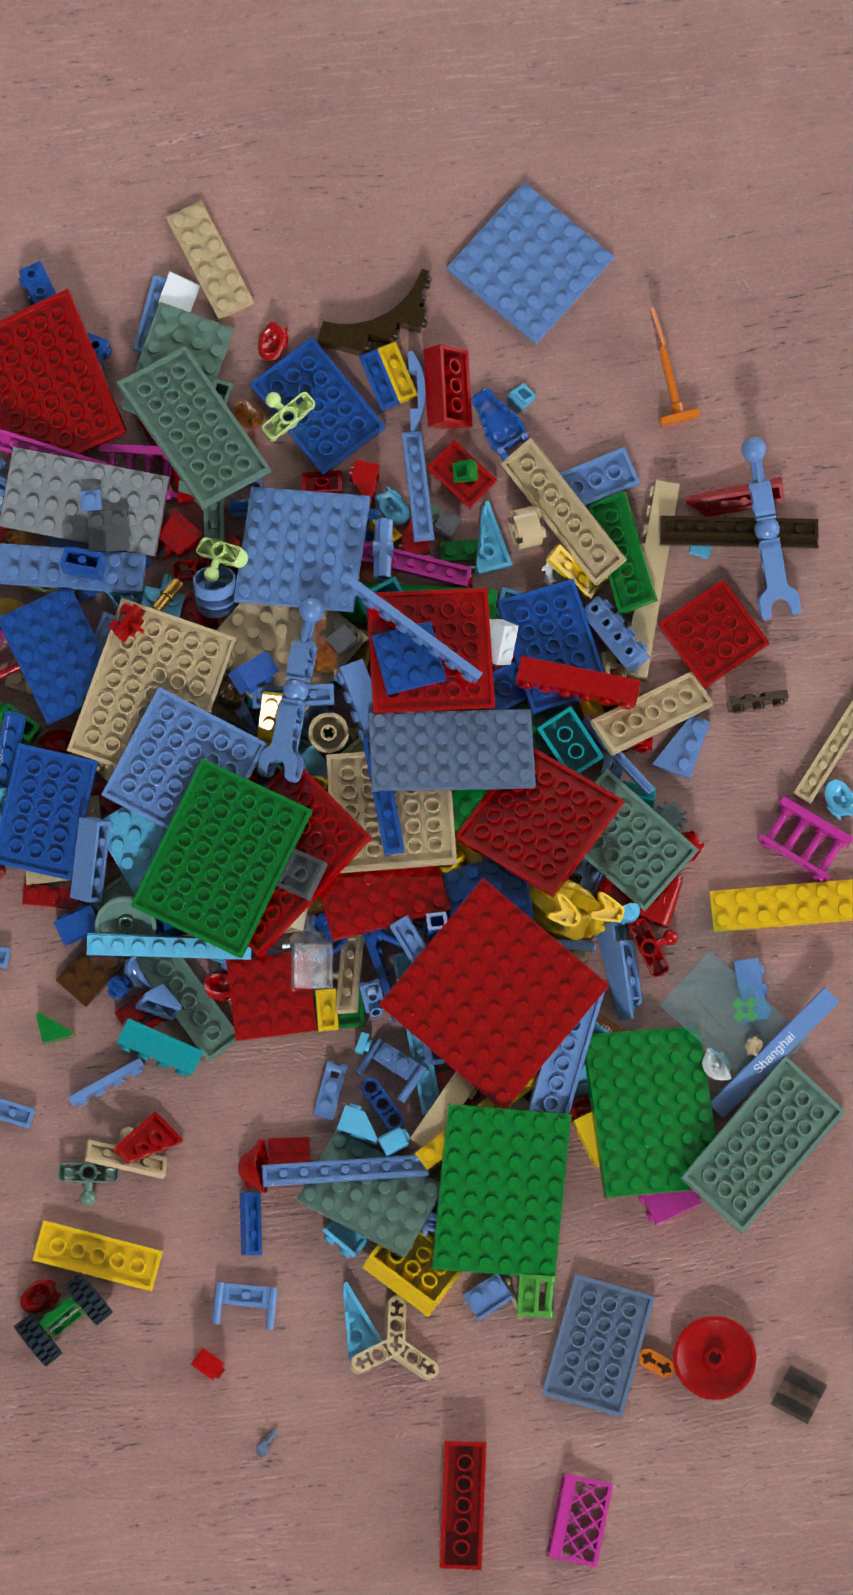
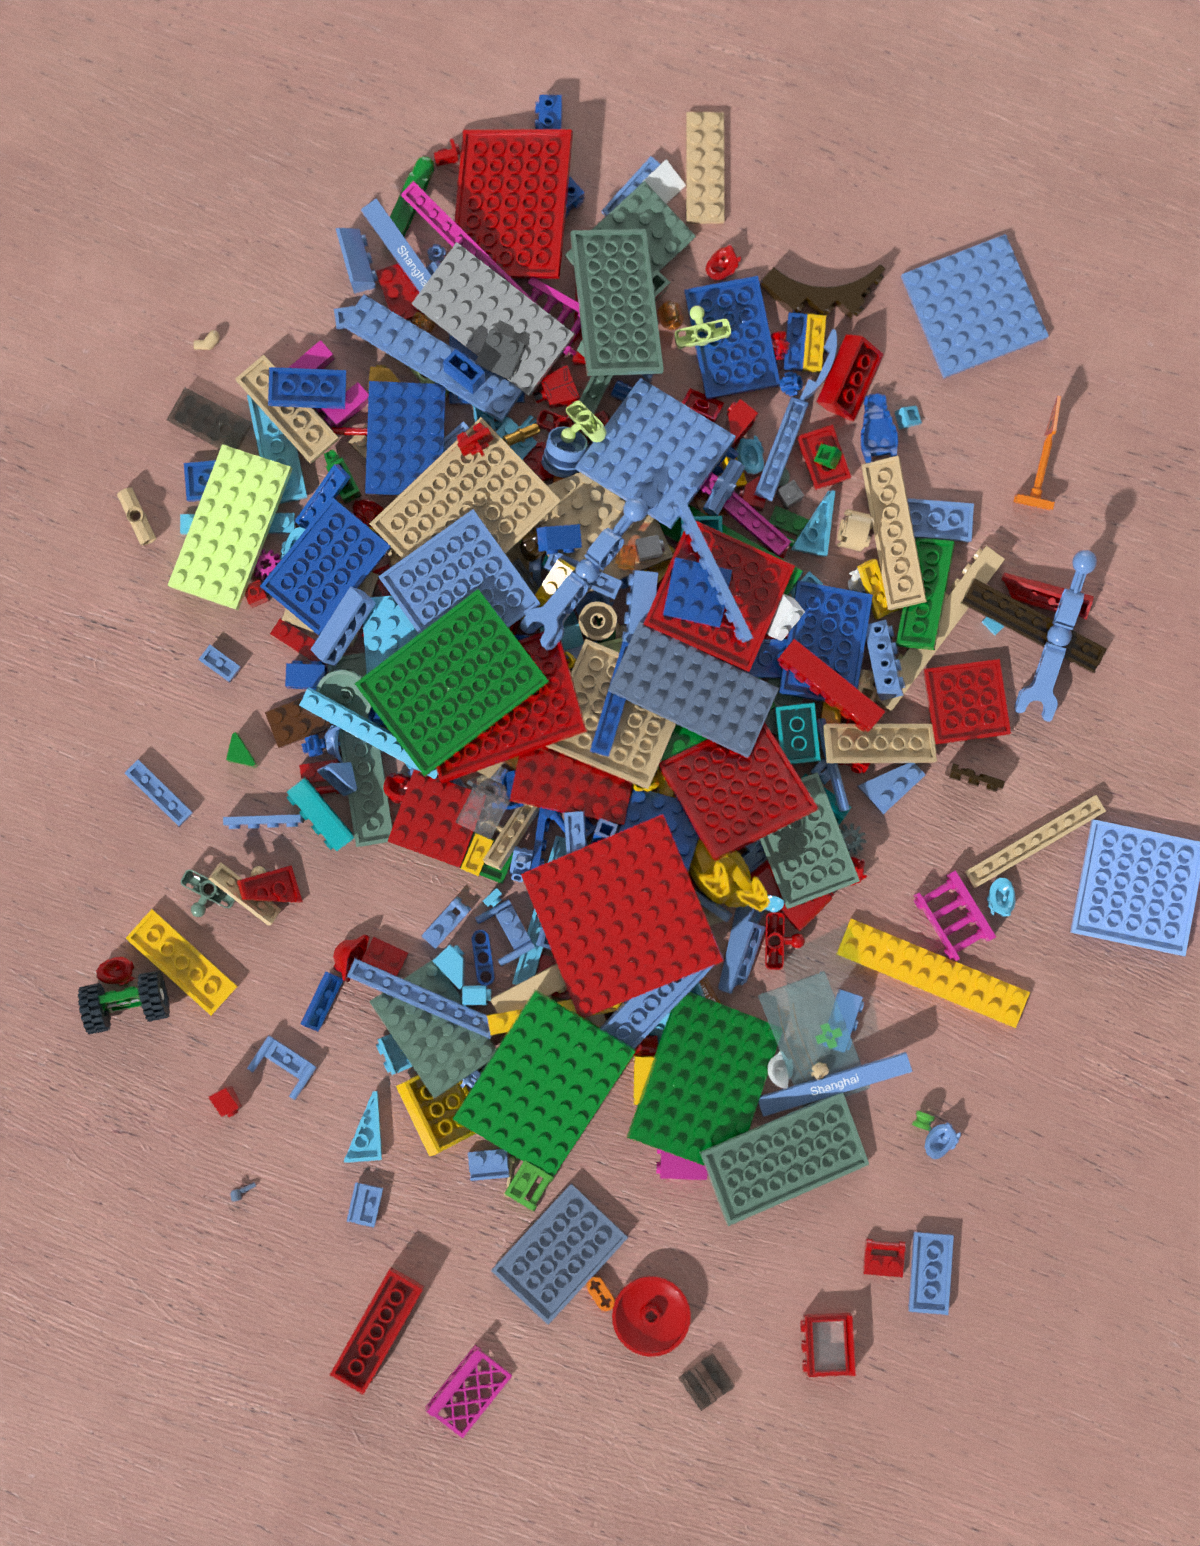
camera: 20 degrees right, 5 degrees up
(91, 500) = (498, 321): medium blue plate -> none
(302, 874) = (511, 732): dark grey plate -> none
(366, 390) = (780, 344): none -> red hat
(390, 1394) = (365, 1204): none -> medium blue plate
(395, 421) = (791, 383): none -> blue gear
(404, 1348) = (390, 1175): tan piece -> none

